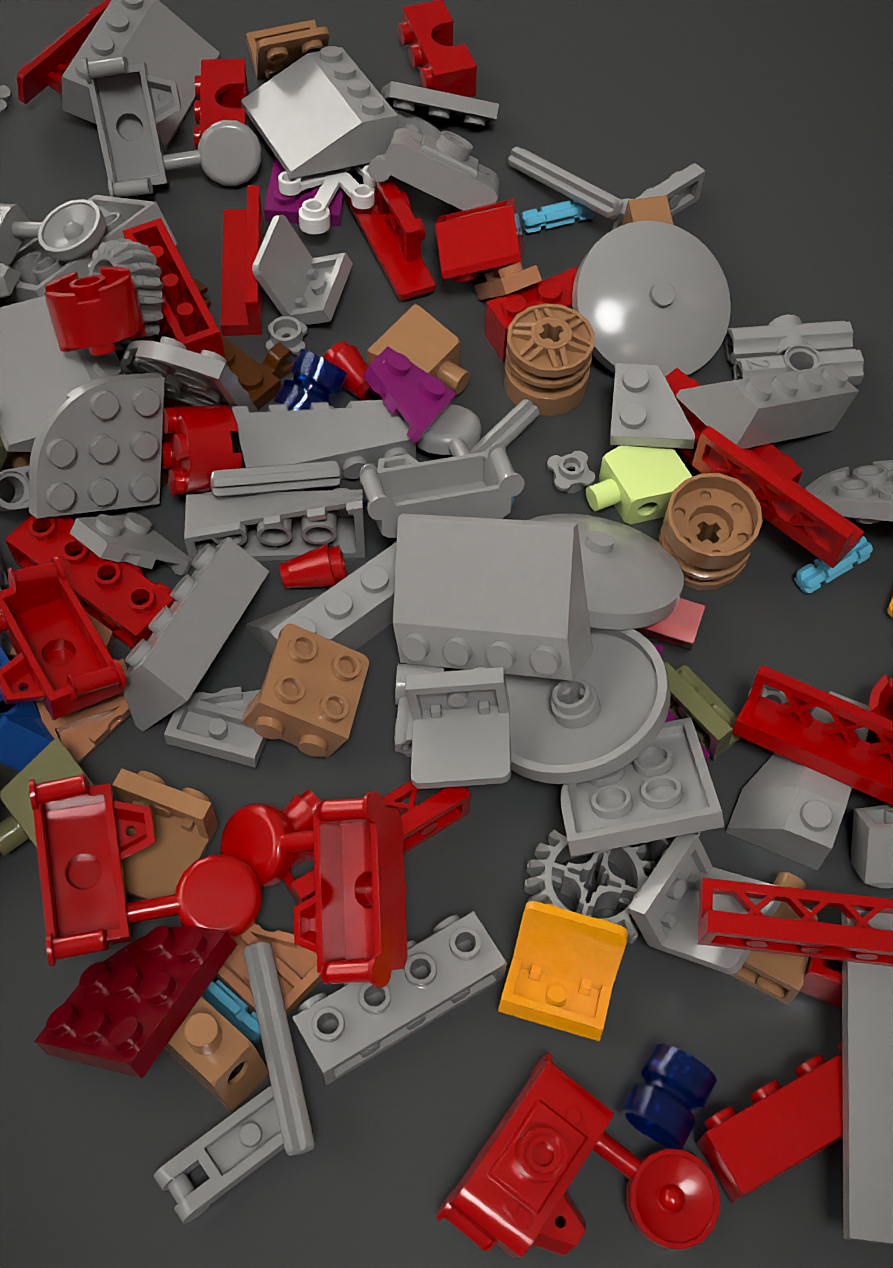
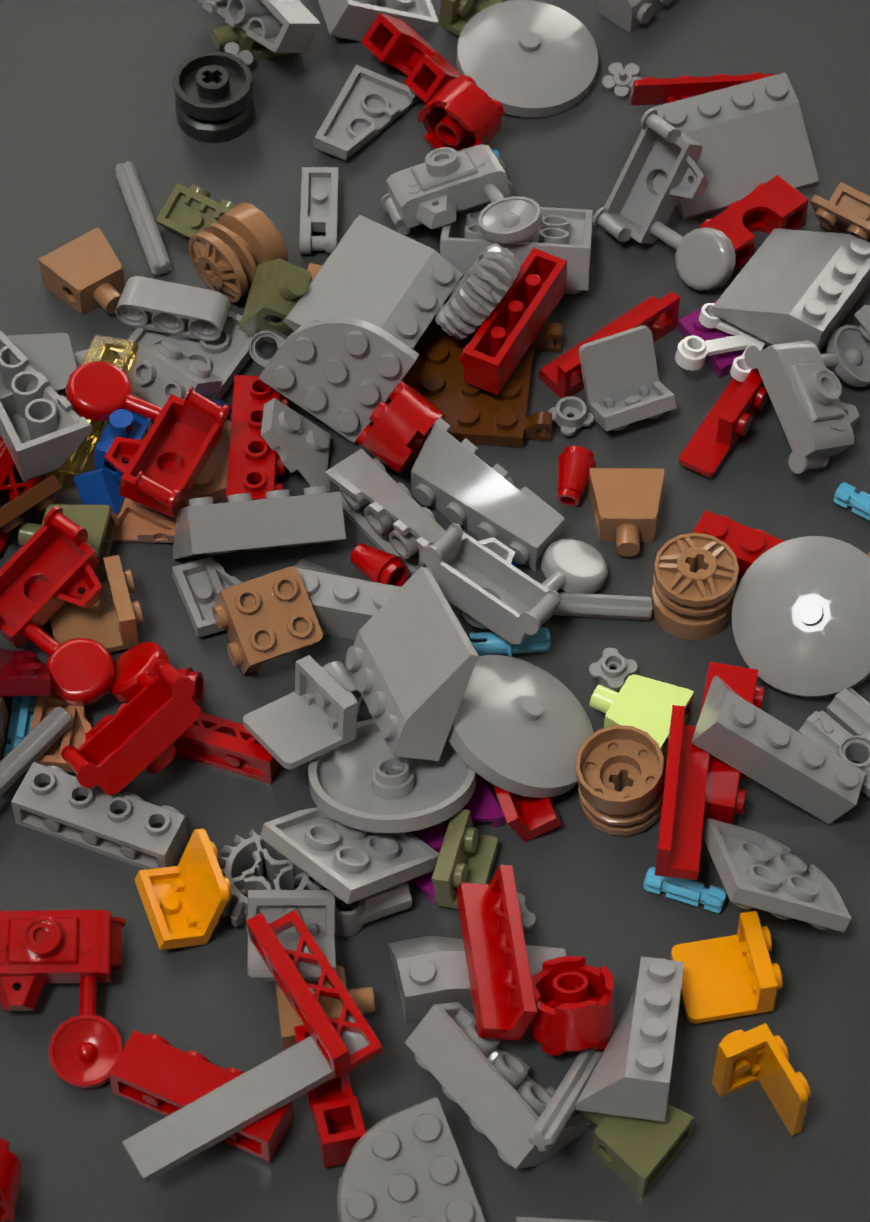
camera: 55 degrees right, 5 degrees down
(94, 310) = (422, 281): red brick -> none
(188, 375) = (438, 377): light grey plate -> none
(274, 478) = (417, 487): light grey axle -> none
(312, 382) = (529, 456): clear blue wheel -> none
(408, 391) = (571, 517): magenta wing -> none
(479, 240) = (765, 468): red slope -> none
(507, 280) = (746, 512): nougat plate -> none
(647, 410) = (688, 668): light grey wing -> none
(665, 1103) = (150, 1006): clear blue wheel -> none

